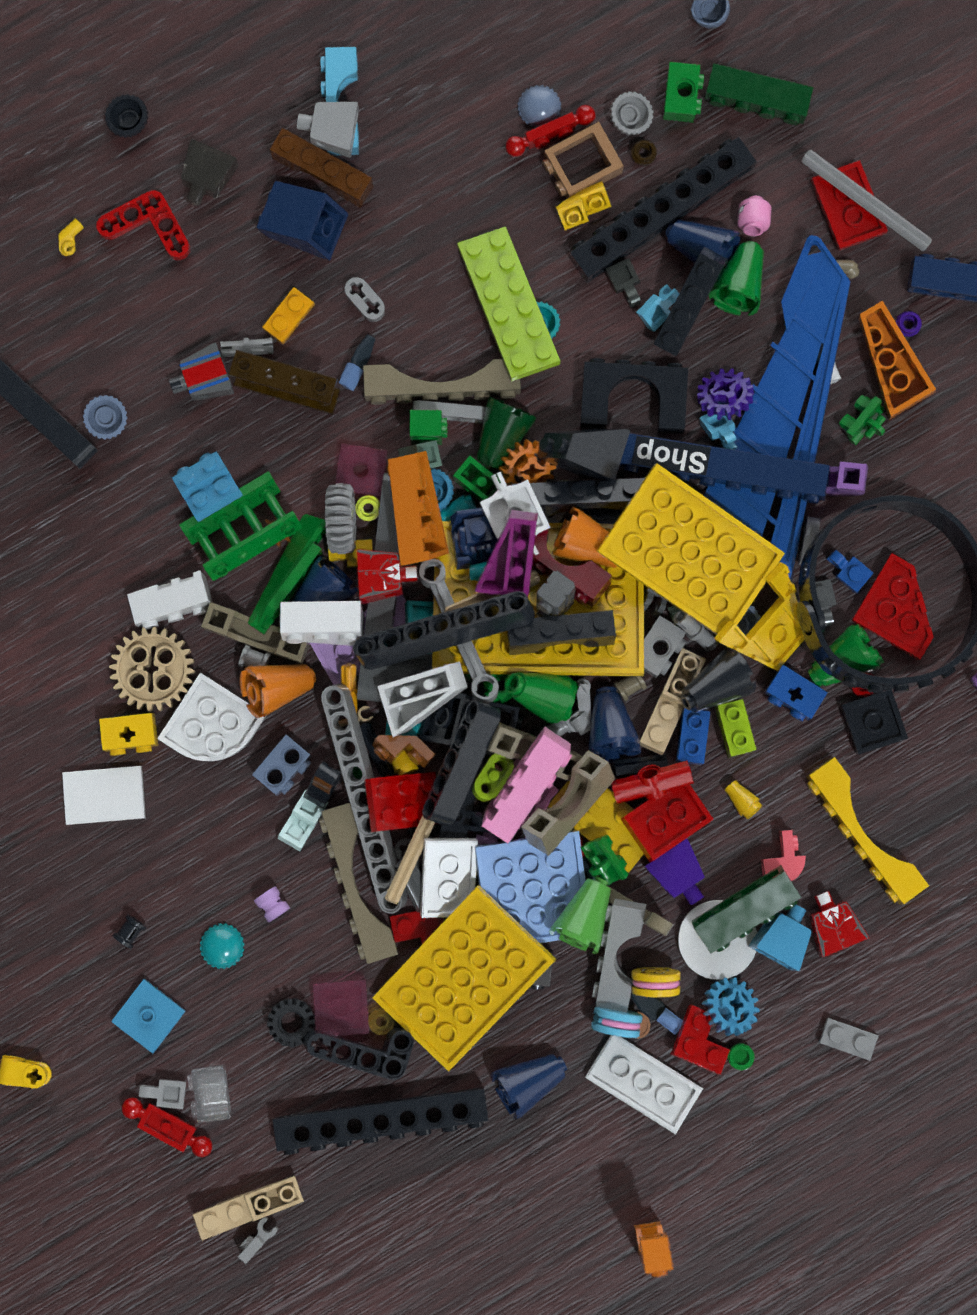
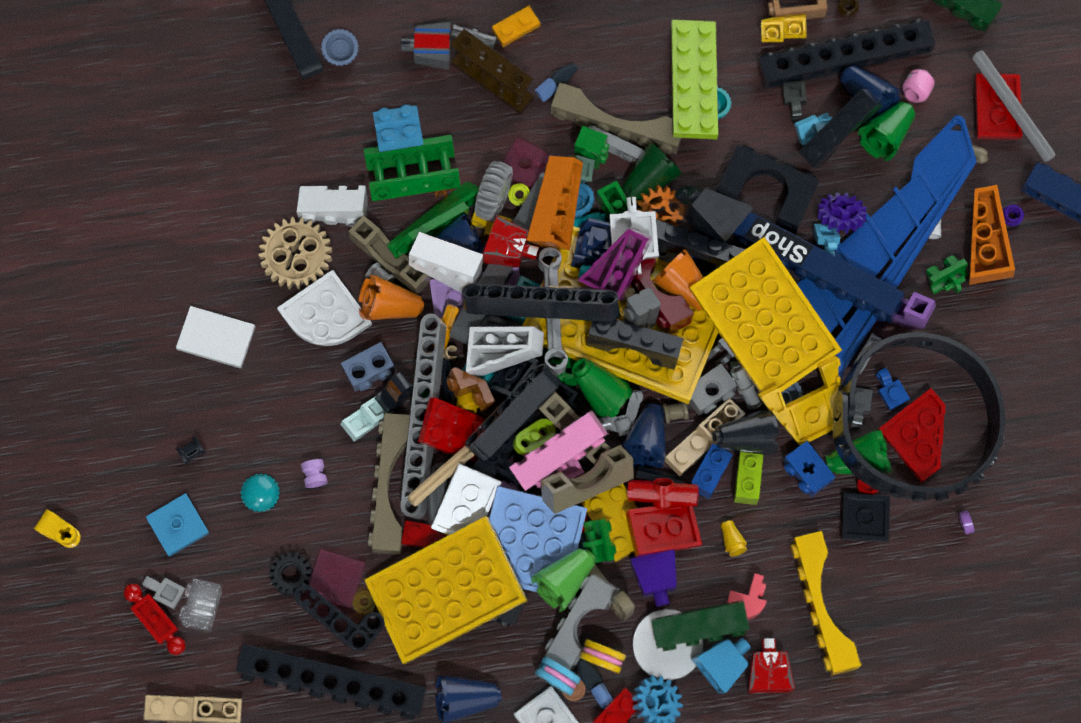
camera: 20 degrees right, 10 degrees down
(113, 729) = (247, 286): yellow brick -> none
(370, 296) = (585, 34): light grey beam -> none

